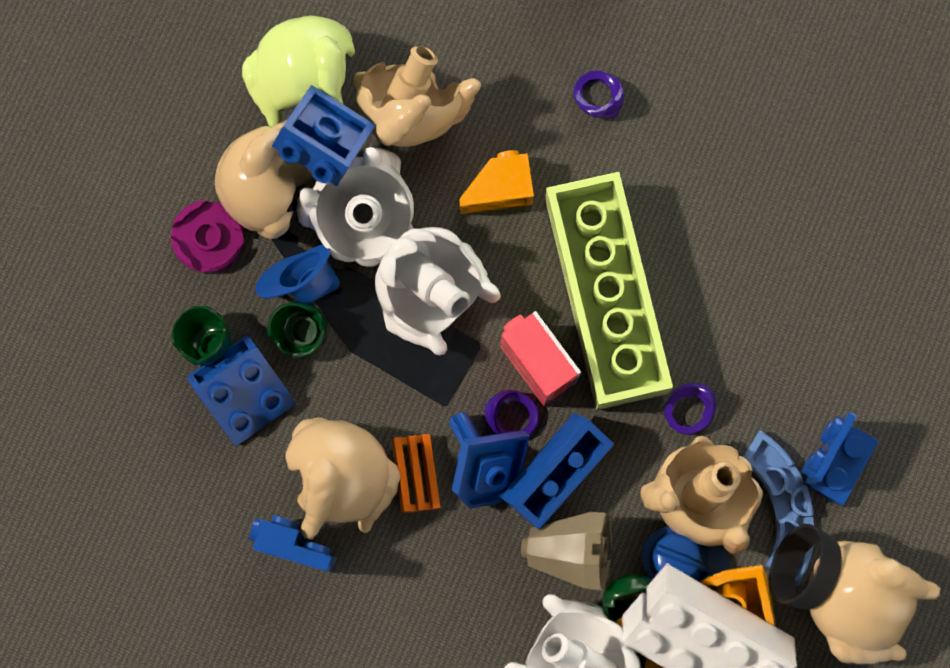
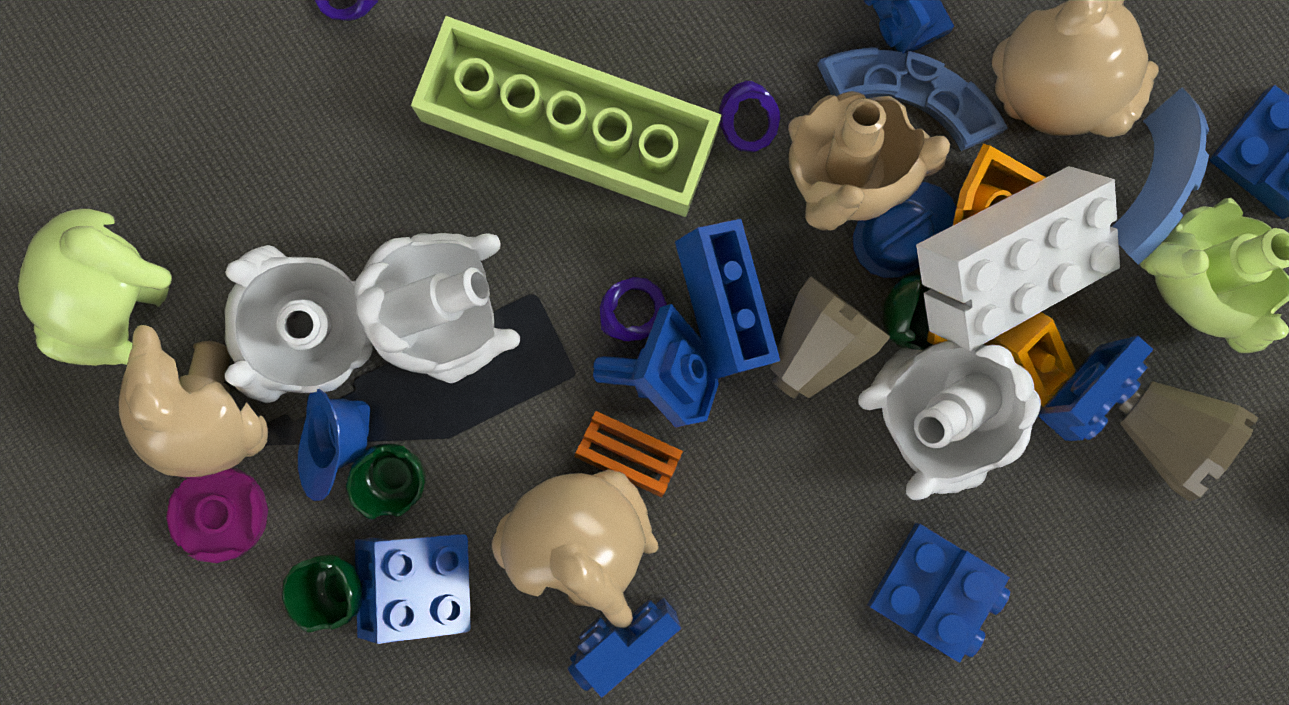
camera: 55 degrees left, 5 degrees up
(322, 136) = (176, 313): blue plate -> none
(407, 101) = (207, 199): tan piece -> none
(500, 185) = (374, 157): light orange slope -> none
(538, 357) = (591, 237): coral piece -> none
(788, 558) = (976, 120): black tyre -> none

